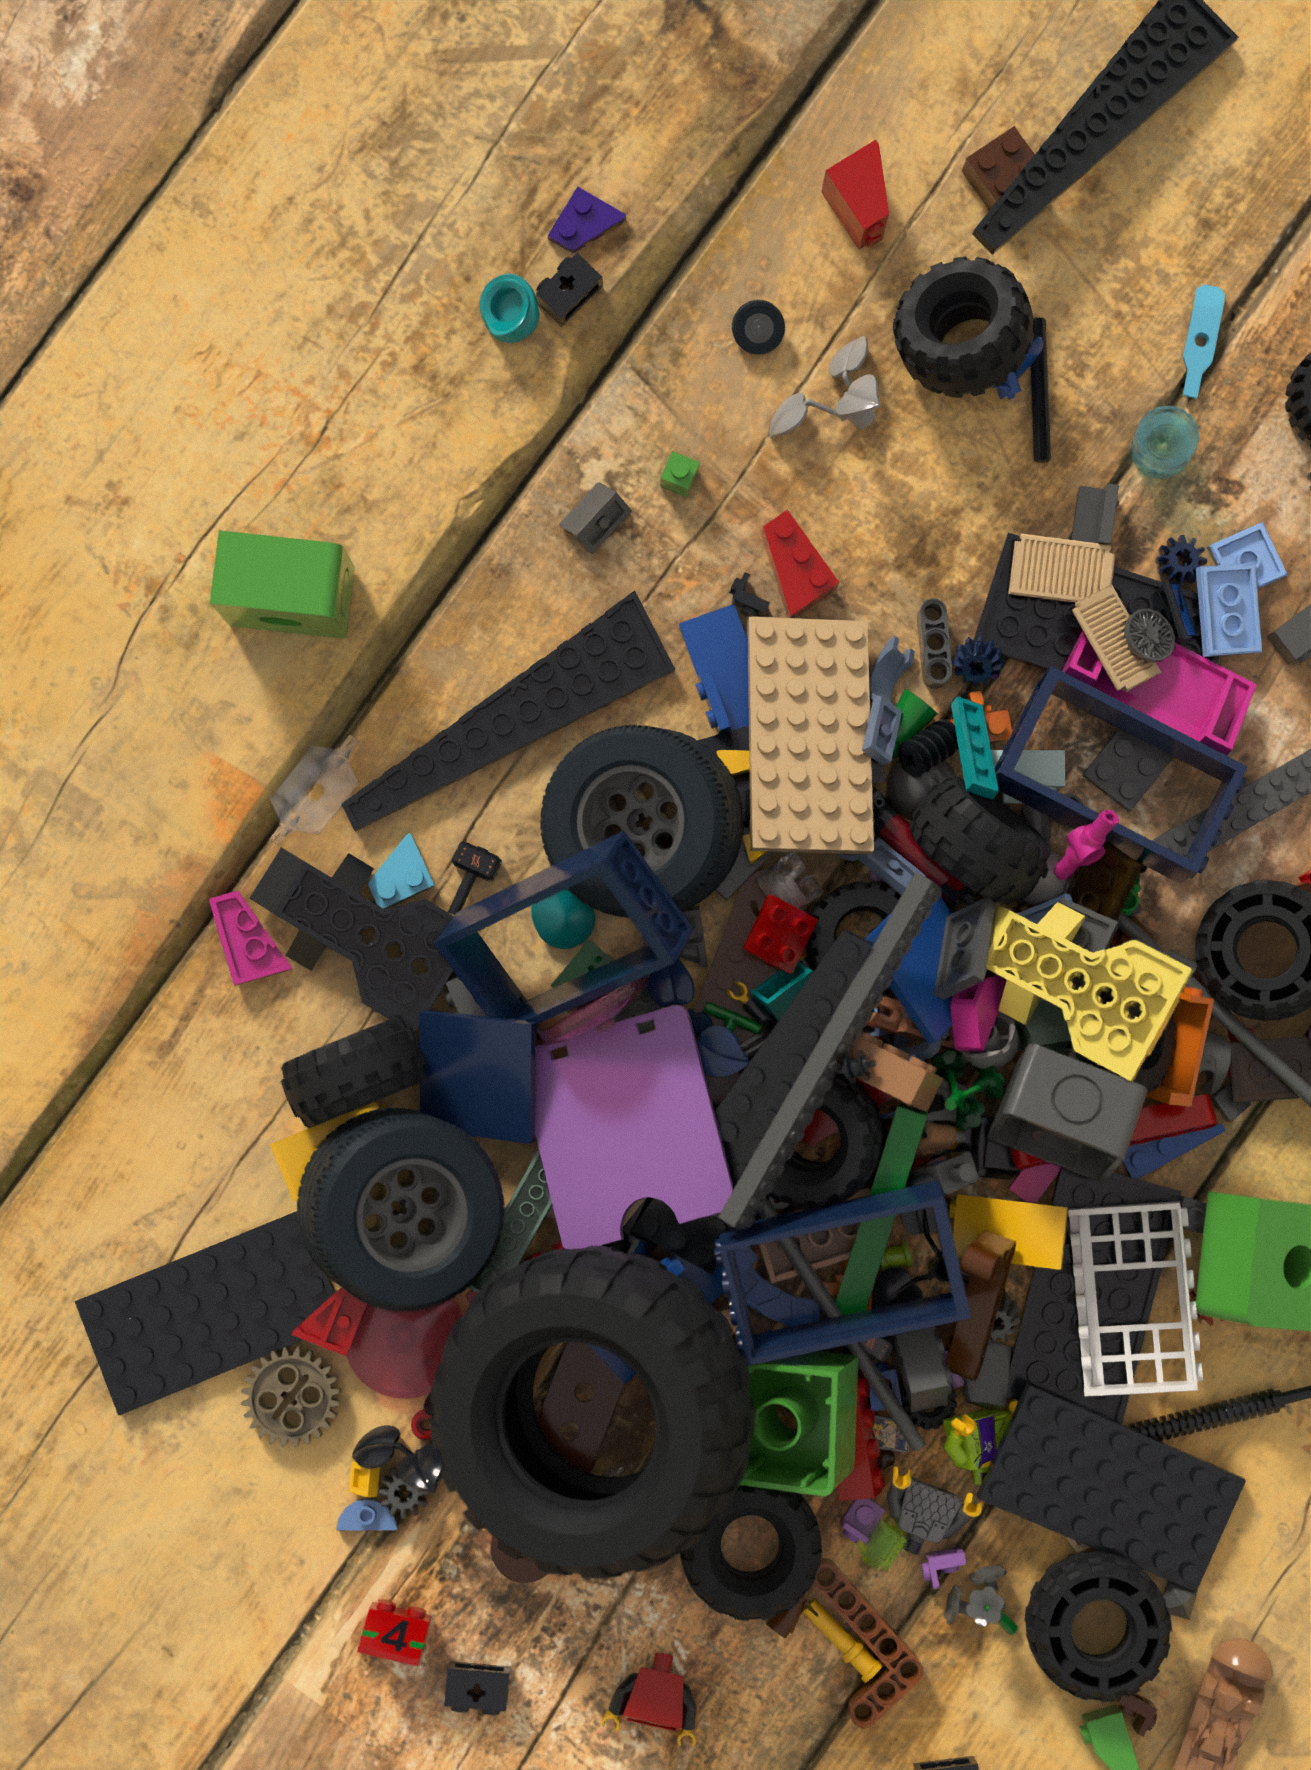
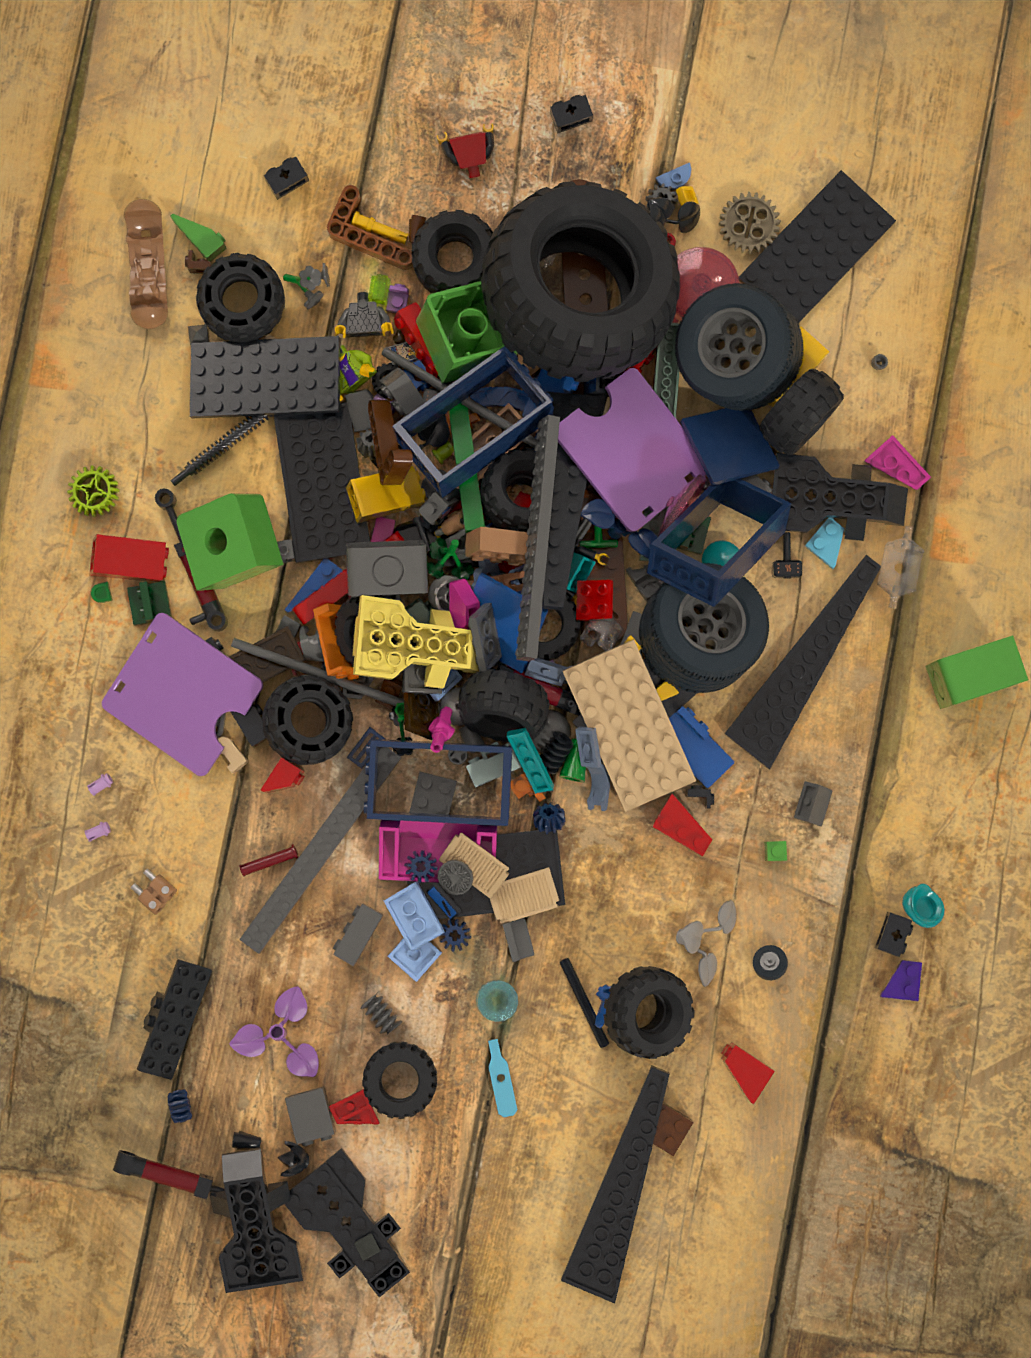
camera: 160 degrees right, 0 degrees up
(197, 1107) = (879, 358): none -> dark grey hinge
(333, 1323) = (745, 269): red wing -> none
(395, 1632) = (630, 121): red slope -> none
(857, 1067) = (520, 534): black wheel -> none
(940, 630) = (578, 808): dark grey beam -> none
(944, 1560) = (340, 297): medium lavender bracket -> none
(1087, 1302) = (324, 475): white window -> none
(1170, 892) = (360, 742): none -> dark blue tile
(1196, 682) = (414, 868): none -> dark blue gear

